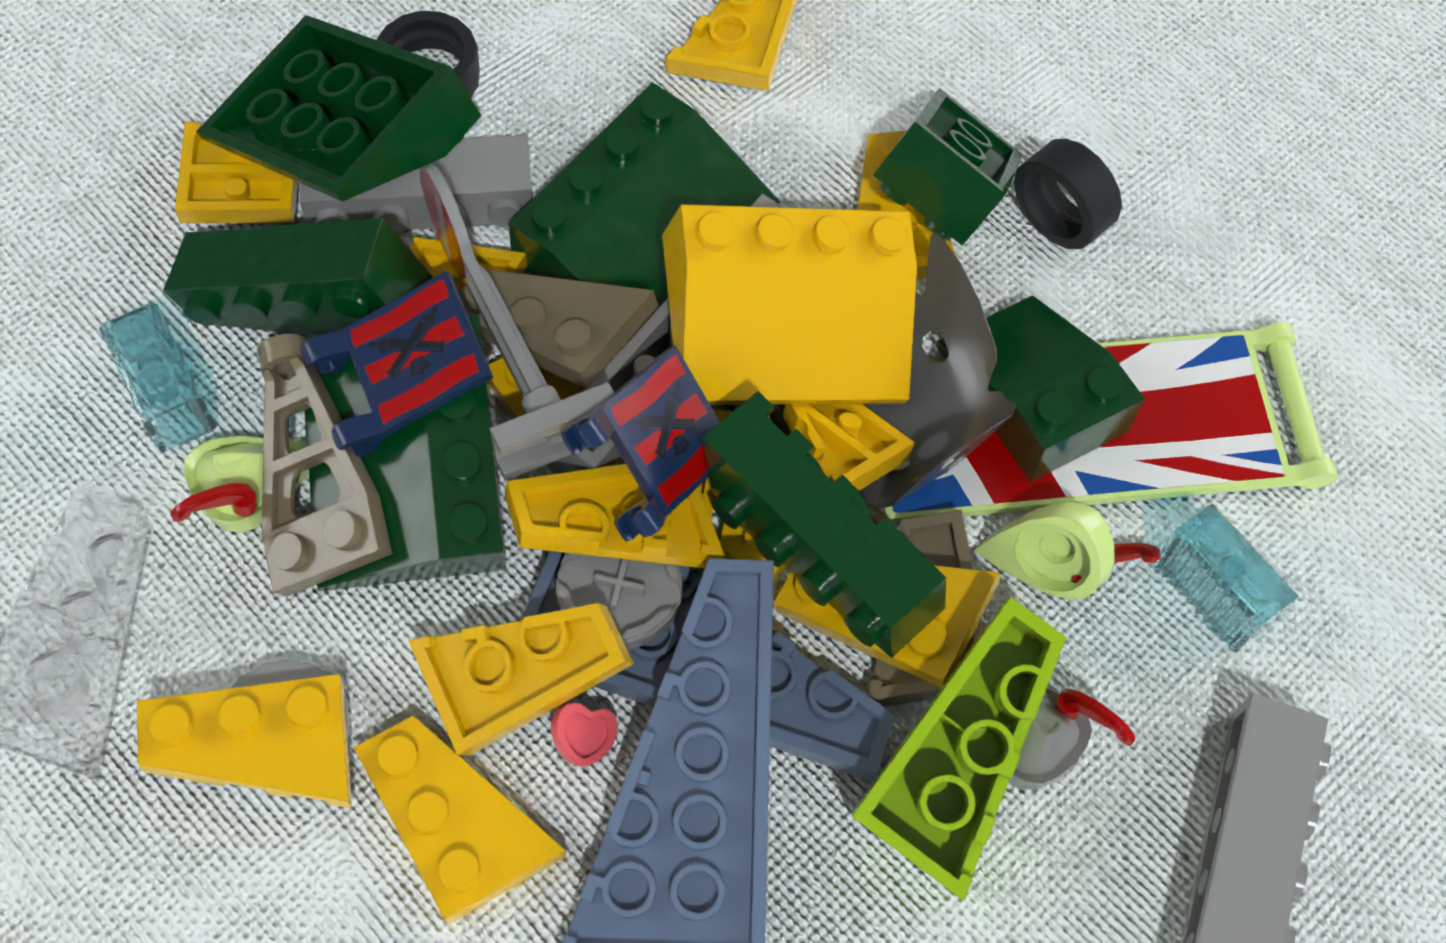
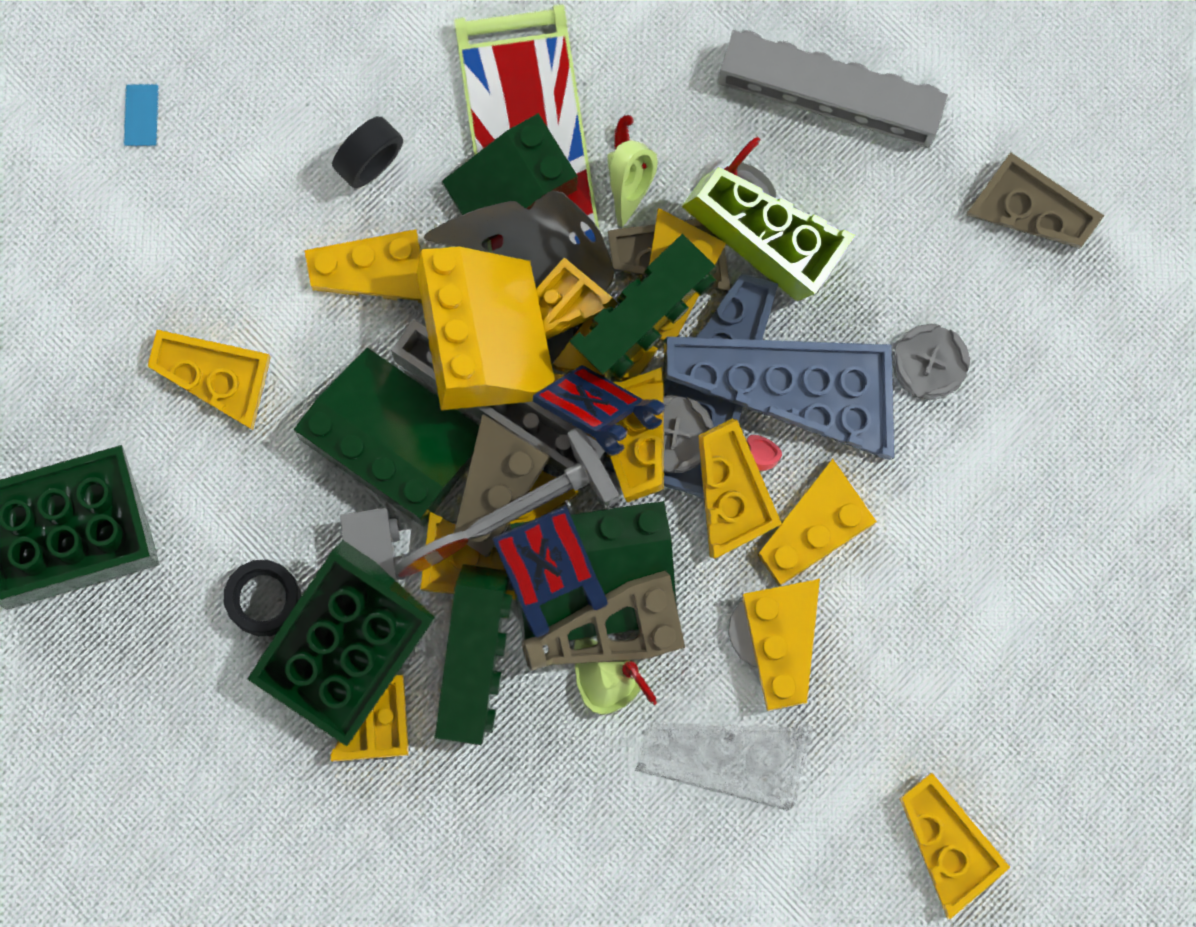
camera: 90 degrees left, 15 degrees up
(157, 377) = (543, 740): clear light blue brick -> none
(949, 168) = (349, 226): dark green slope -> none
(1224, 578) = (640, 78): clear light blue brick -> none

